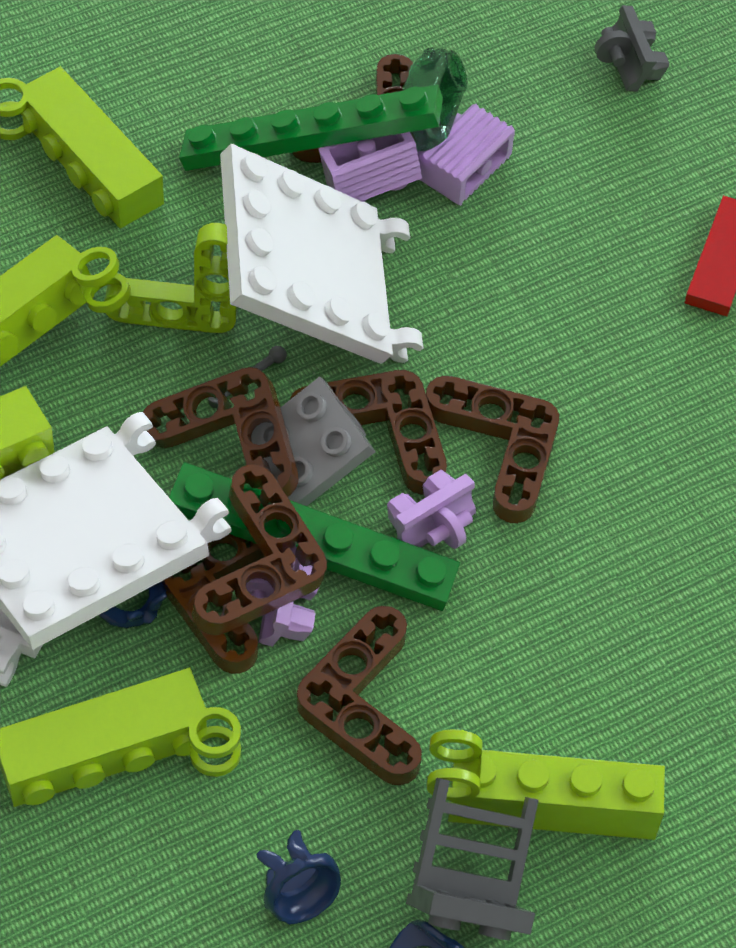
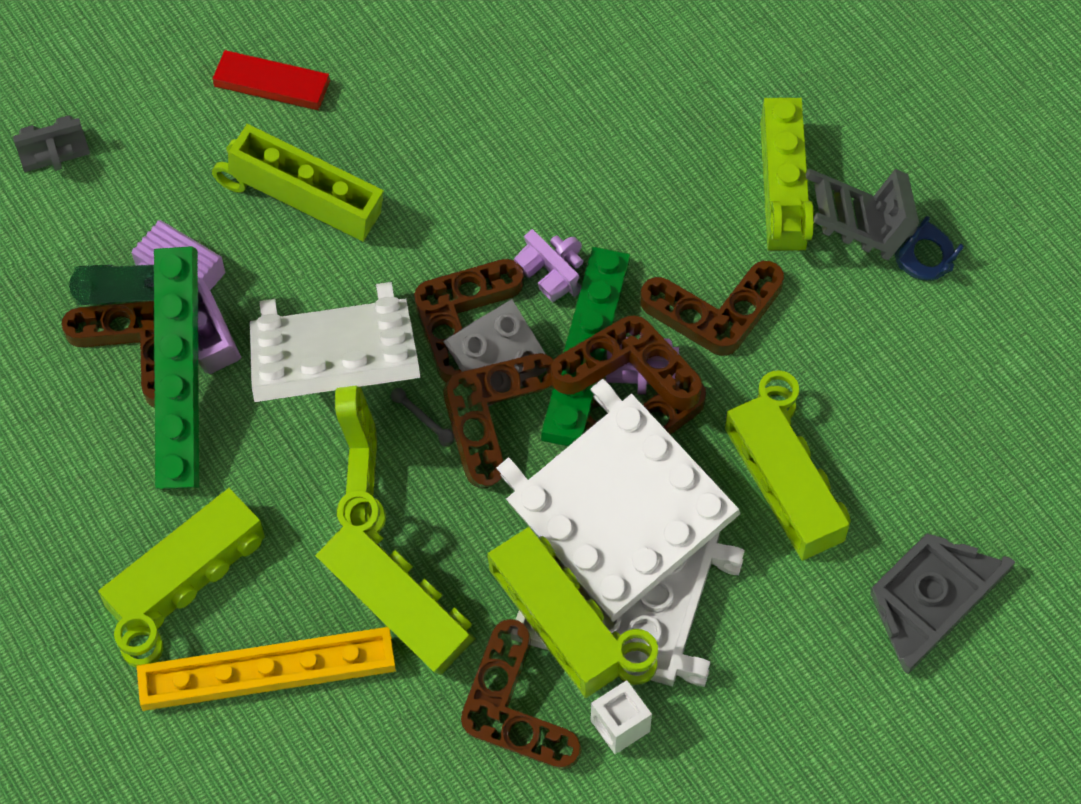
camera: 90 degrees left, 5 degrees up
(302, 886) = (880, 334): dark blue piece -> none
(521, 435) = (466, 214): reddish brown beam -> none
(555, 258) = (300, 182): none -> lime hinge

